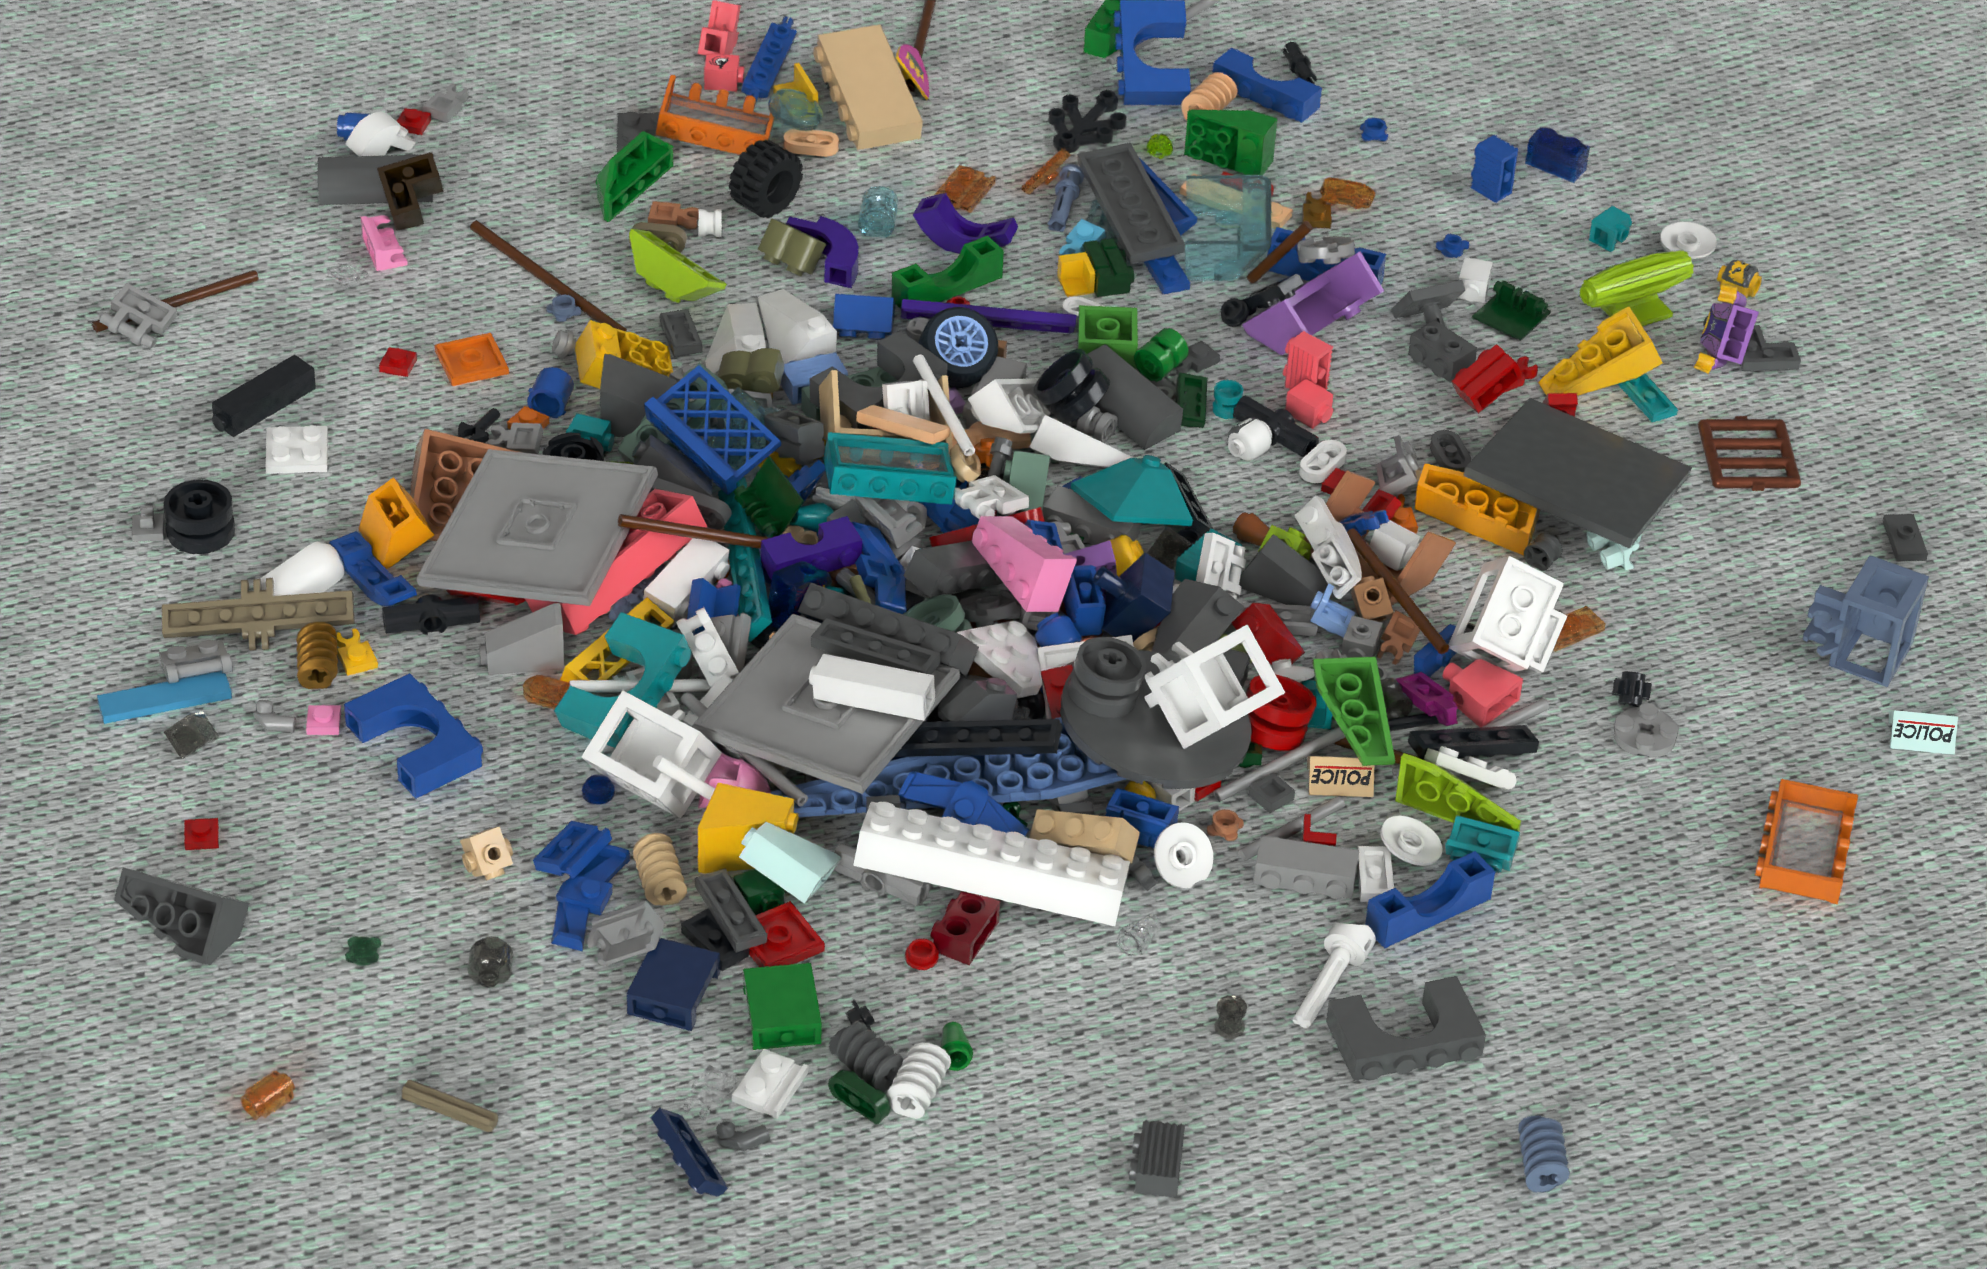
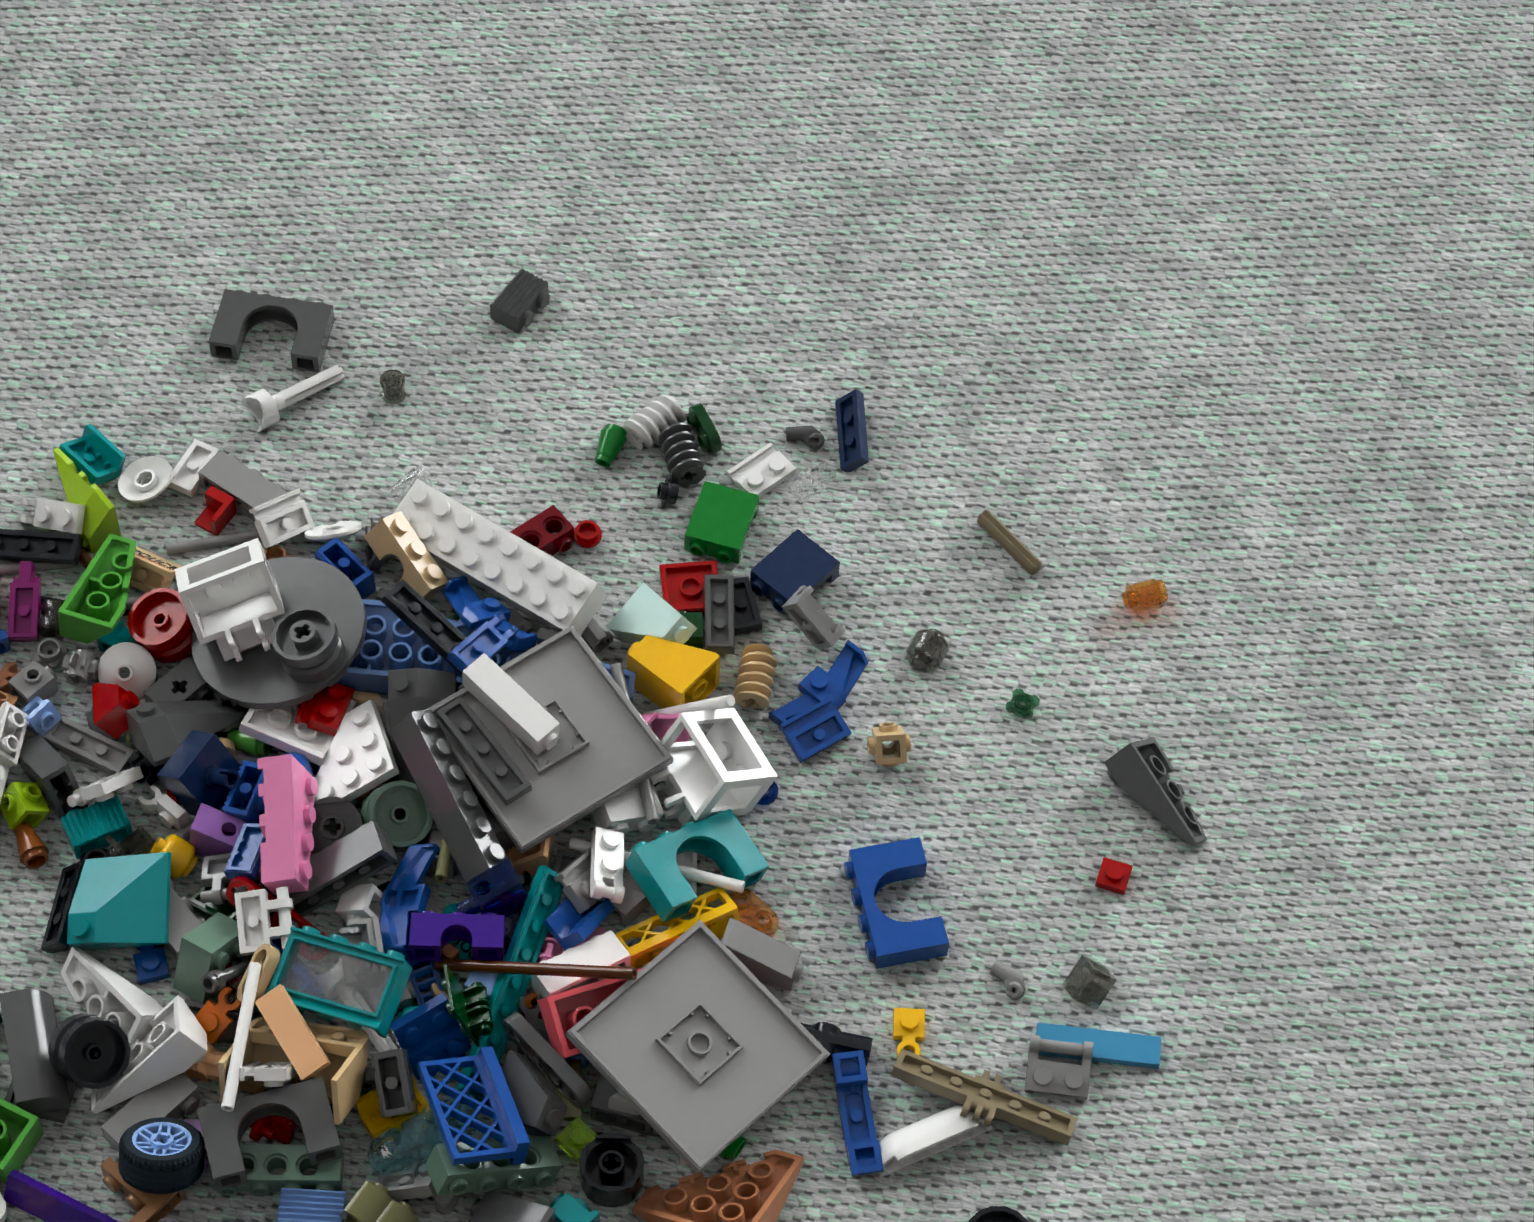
camera: 155 degrees left, 15 degrees up
(317, 655) = (946, 1027): pearl gold piece -> none
(323, 720) = (965, 962): bright pink plate -> none
(393, 523) = (815, 1149): light orange slope -> none
(939, 740) = (483, 640): none -> blue hinge
(1241, 841) = (282, 518): none -> white plate
(1460, 888) = (144, 422): blue arch -> none
(1543, 1153) = (251, 201): sand blue piece -> none

